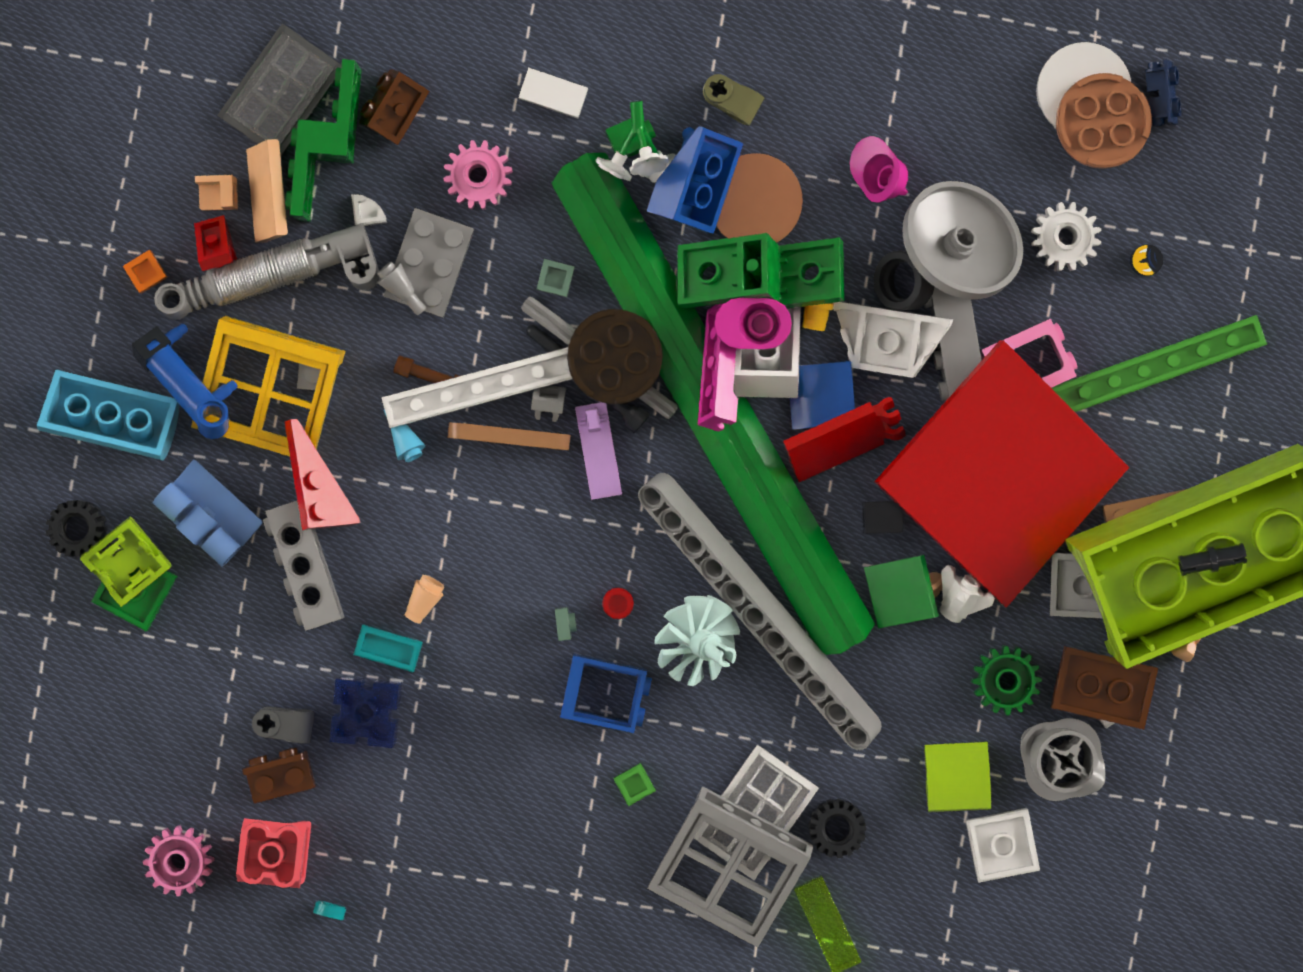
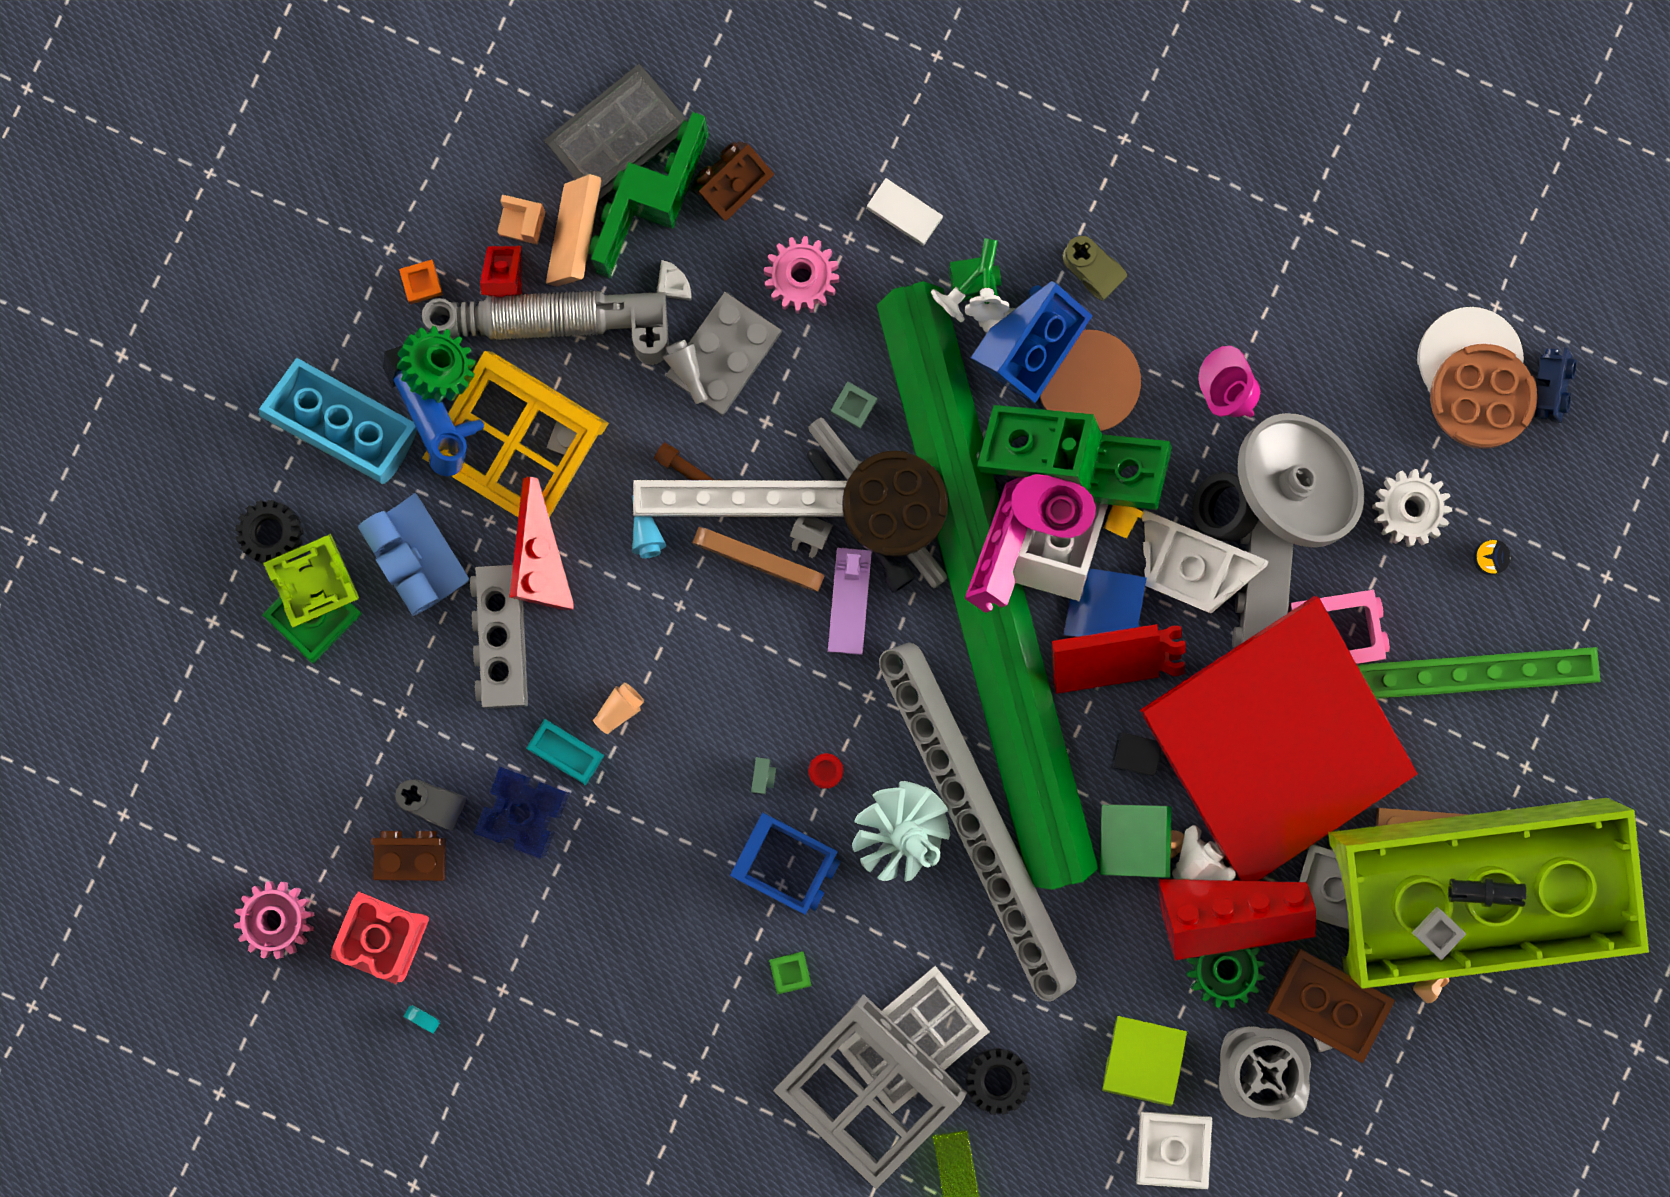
camera: 20 degrees right, 5 degrees down
(176, 359) = (425, 378): none -> green gear
(1001, 633) = (1233, 915): none -> red wedge
(1180, 605) = (1439, 933): none -> light grey plate

